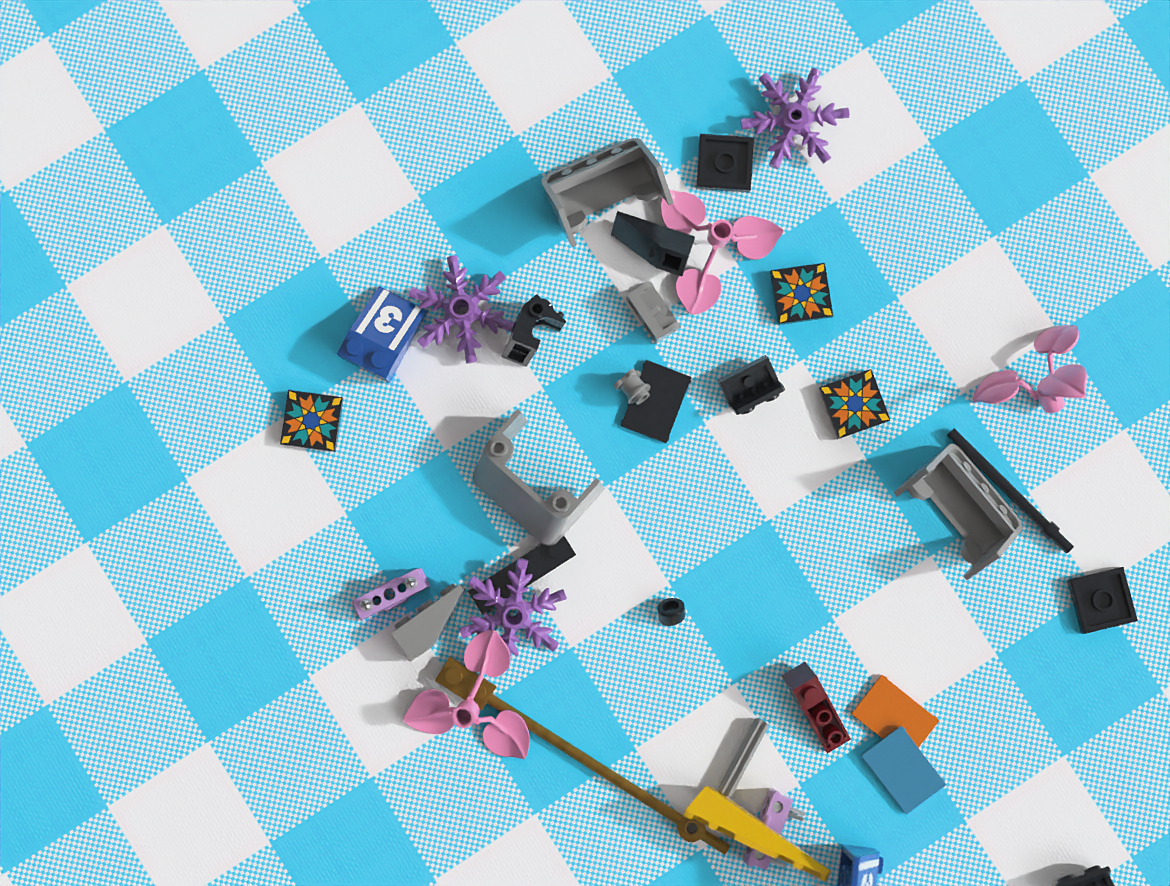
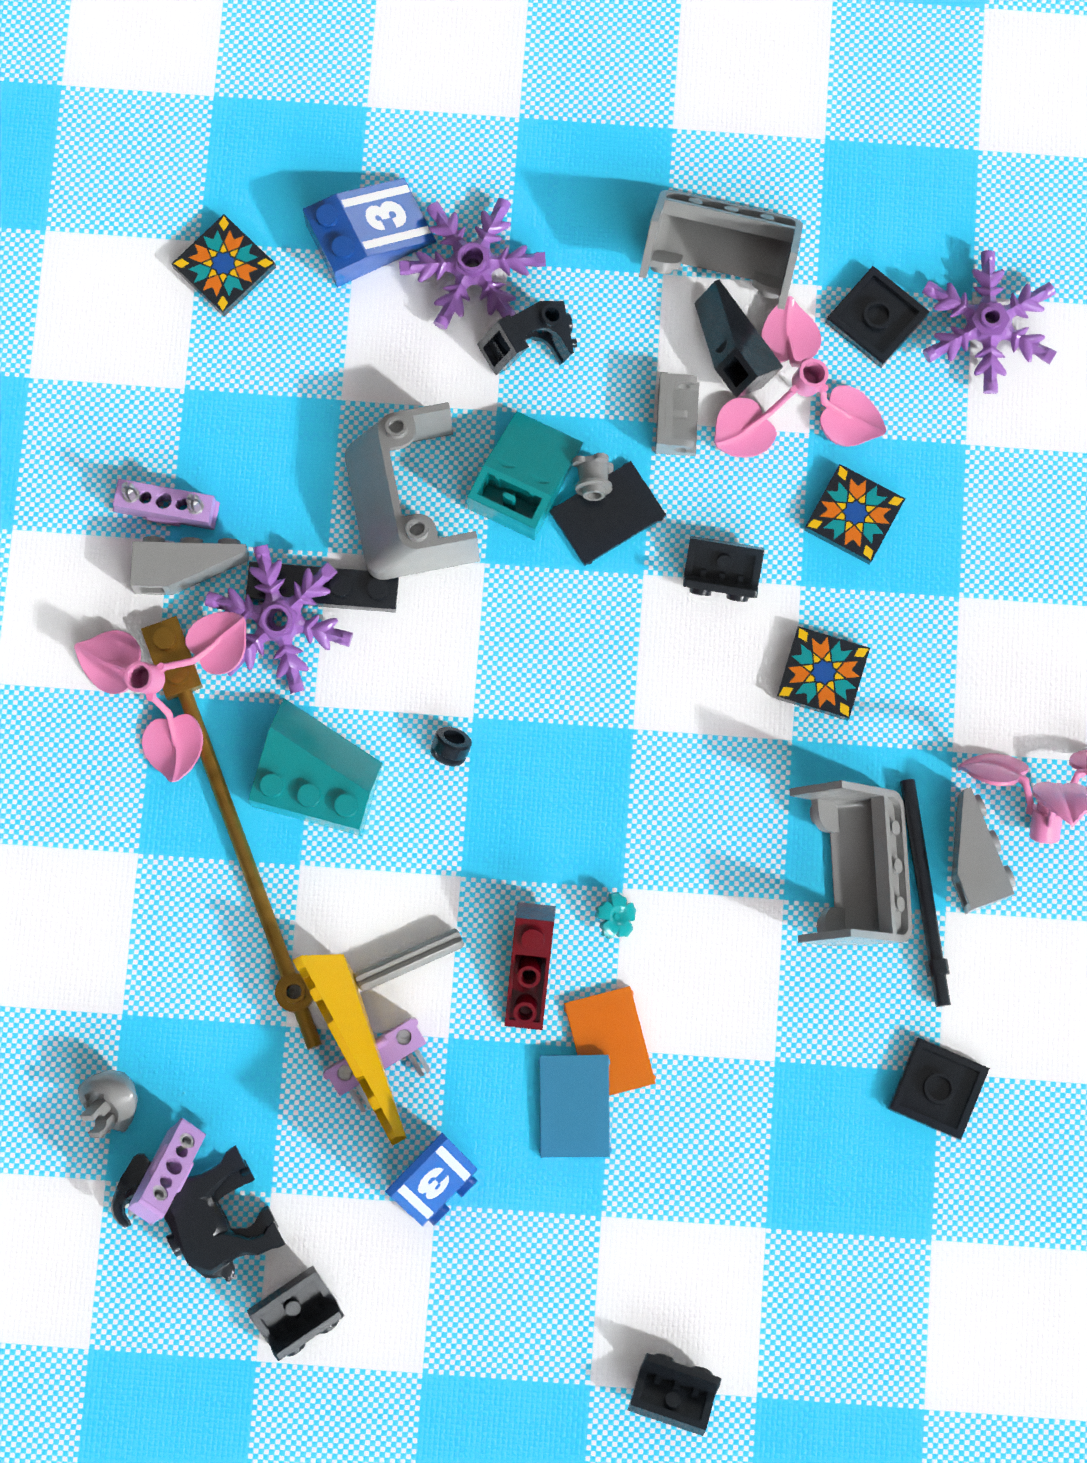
camera: 30 degrees right, 5 degrees down
(591, 415) = (523, 475): none -> teal slope
(604, 688) = (314, 773): none -> teal wedge
(844, 640) = (617, 916): none -> teal plant
(1027, 452) = (976, 864): none -> light grey slope

